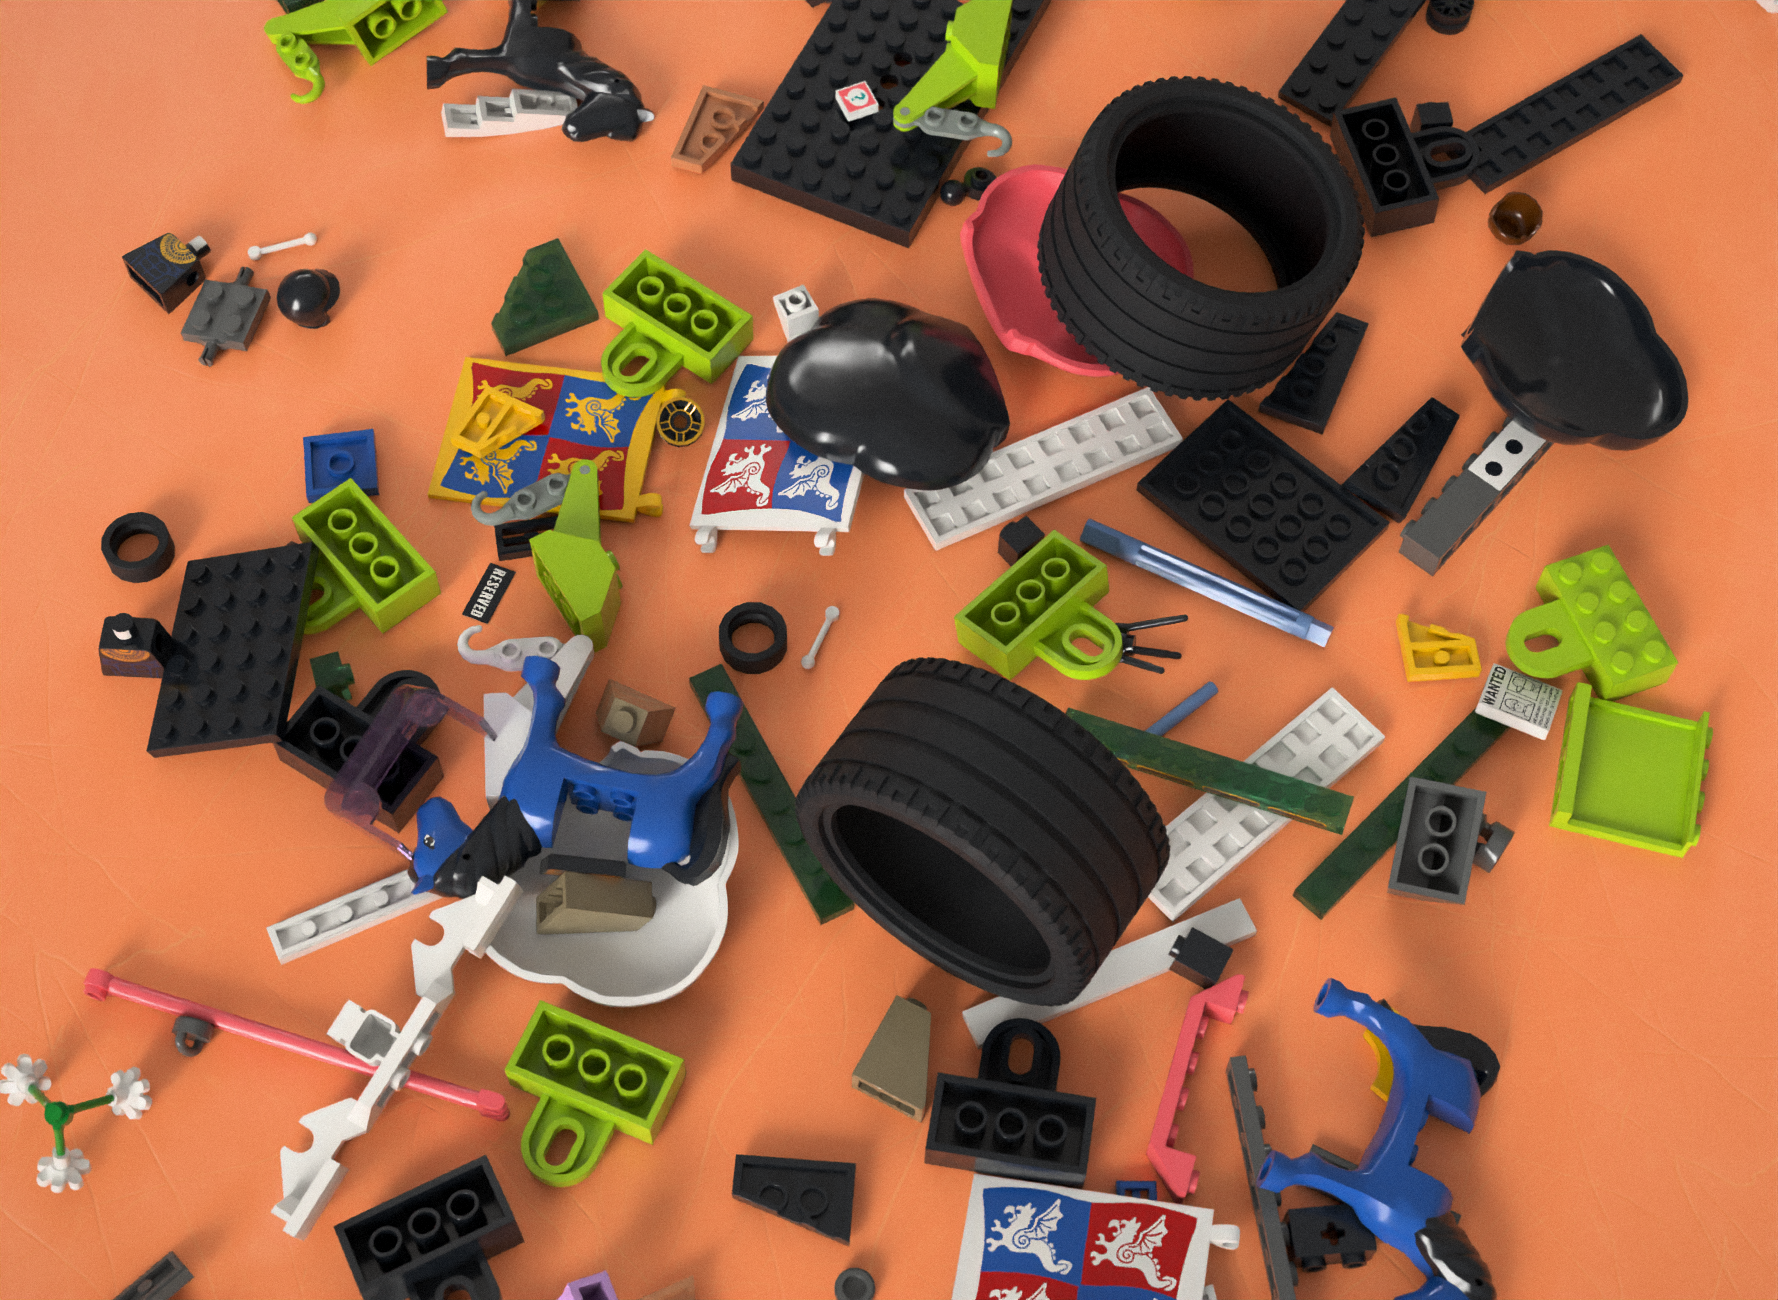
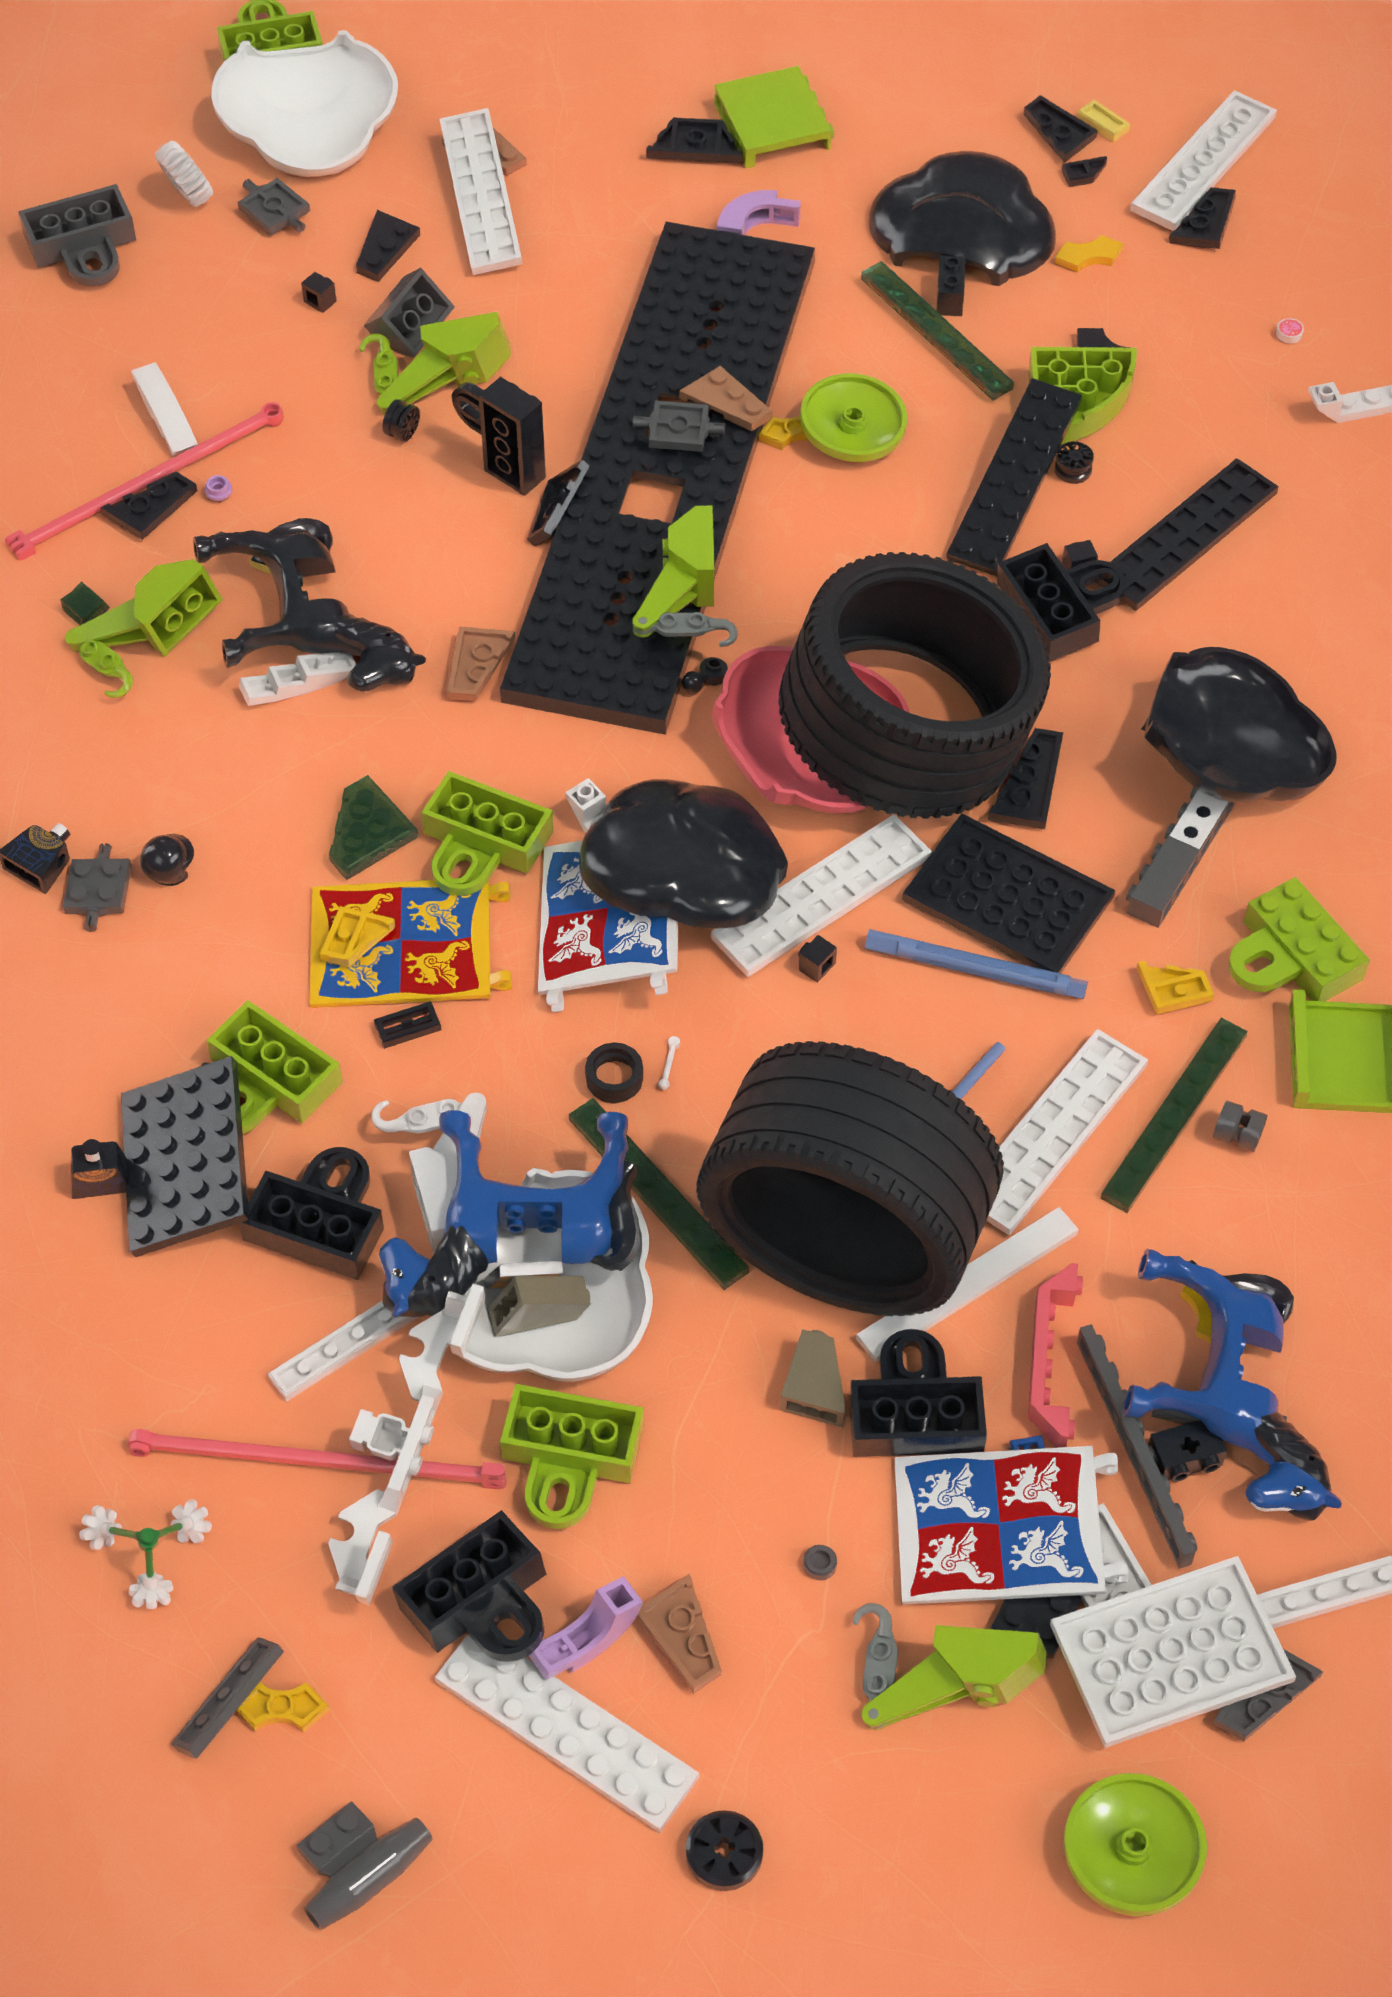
camera: 10 degrees left, 5 degrees down
(131, 525) = (81, 1108): black tyre -> none
(193, 1030) = (229, 1463): dark grey tile -> none
(256, 253) = (107, 830): white hinge -> none
(333, 674) = (271, 1160): clear green plate -> none
(338, 457) = (227, 989): blue plate -> none
(353, 791) = (322, 1248): windscreen -> none
(488, 593) = (382, 1076): black sticker -> none
(570, 558) = (448, 1035): lime slope -> none
(632, 715) = (530, 1148): dark tan slope -> none
(689, 410) = (513, 896): wheel -> none
(799, 1191) = (758, 1495): black wing -> none
(856, 101) = (596, 618): white tile -> none
(1040, 611) = (851, 1004): lime brick -> none
(1131, 649) = (919, 1025): black plant -> none
(1199, 958) = (1038, 1257): black brick -> none
(1220, 774) = (1050, 1115): clear green plate -> none
(1402, 464) = (1115, 842): black wing -> none
(1436, 842) = (1207, 1132): dark grey slope -> none
(1515, 218) = (1165, 627): reddish brown hair -> none
(1519, 701) = (1249, 1013): white tile -> none

